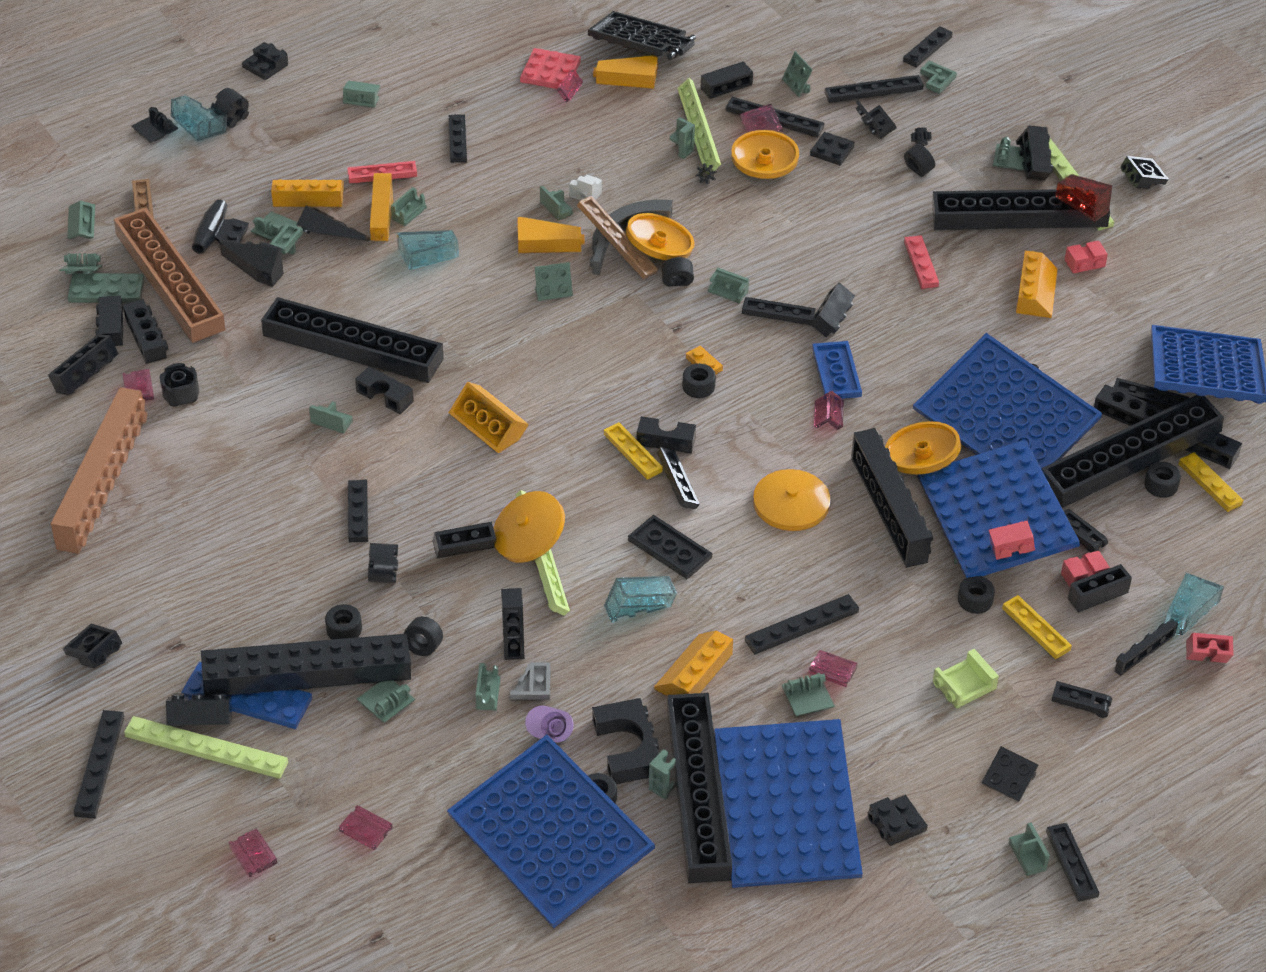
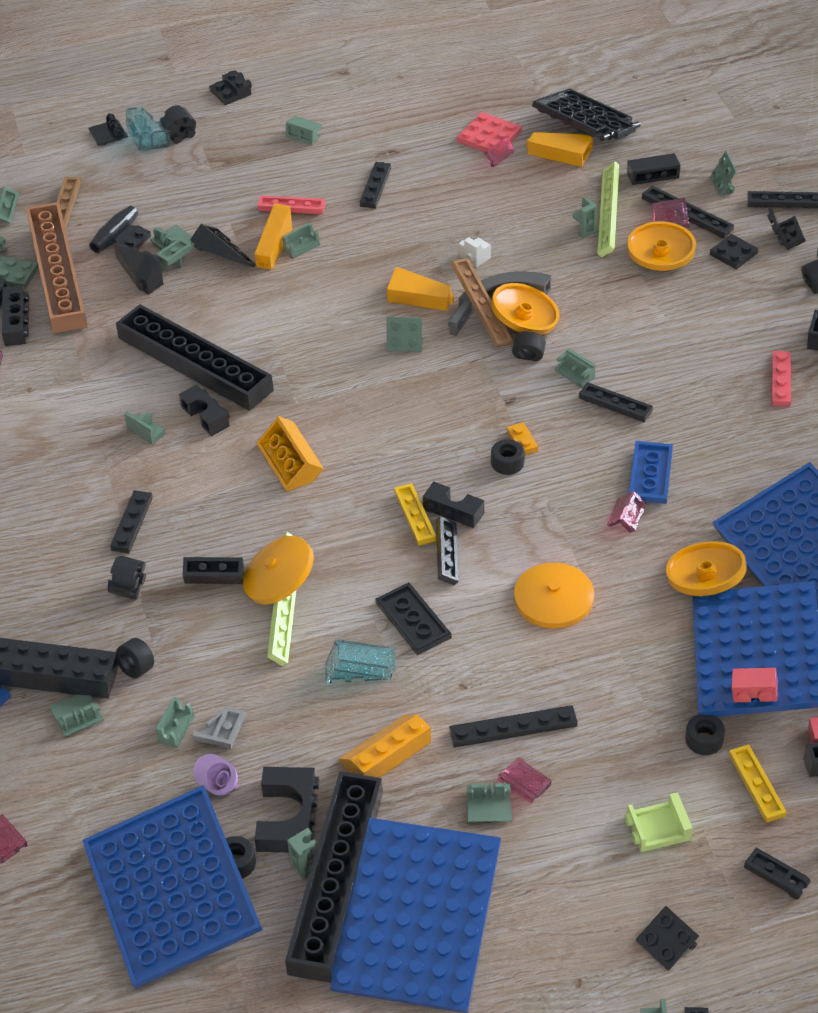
camera: 20 degrees right, 0 degrees up
(179, 384) = (20, 370): black brick -> none
(307, 193) = (215, 213): light orange slope -> none
(341, 614) = (65, 620): black tyre -> none
(427, 247) = (301, 282): clear light blue wedge -> none
(512, 623) = (215, 664): black brick -> none
(555, 203) = (440, 260): sand green panel -> none
(708, 177) = (601, 255): black gear -> none
(833, 310) = (669, 411): black brick -> none
(891, 497) = (653, 614): black brick -> none
(896, 819) = (528, 959): black plate -> none

